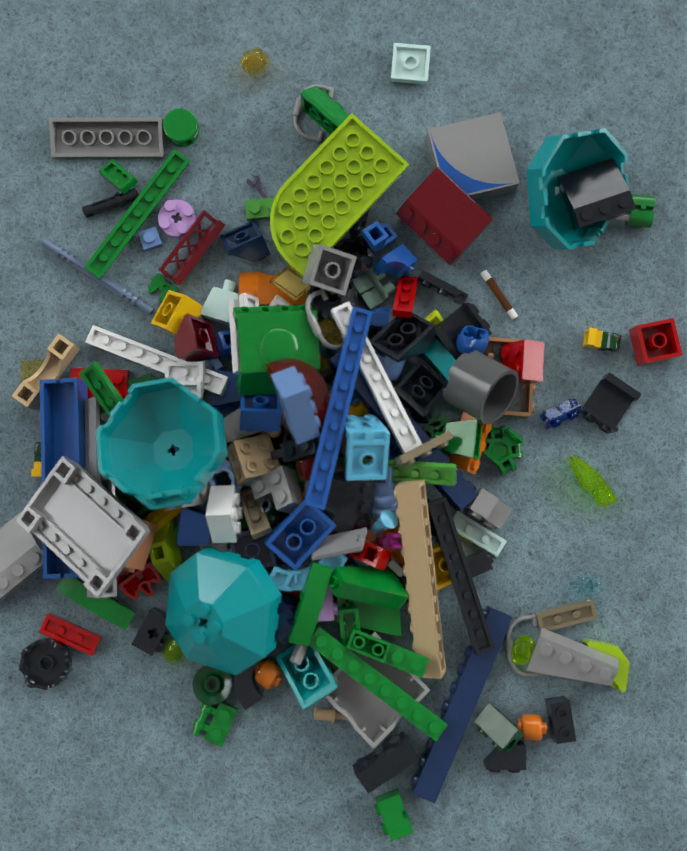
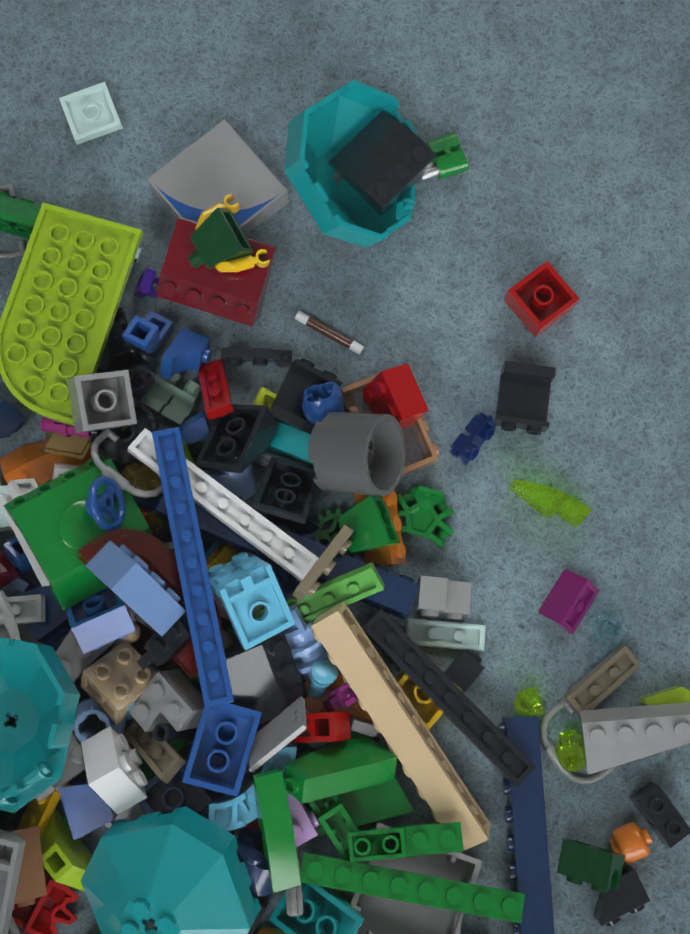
camera: 25 degrees left, 5 degrees down
(293, 275) = (66, 430): none -> dark pink pin
(298, 339) = (103, 504): none -> blue piece
(391, 201) = (145, 284): none -> dark purple tile
(459, 198) = (221, 241): none -> dark green torso
(511, 605) = (530, 702): none -> clear neon green piece
(570, 552) = (569, 600): none -> magenta panel
(601, 340) = (477, 327): leg -> none

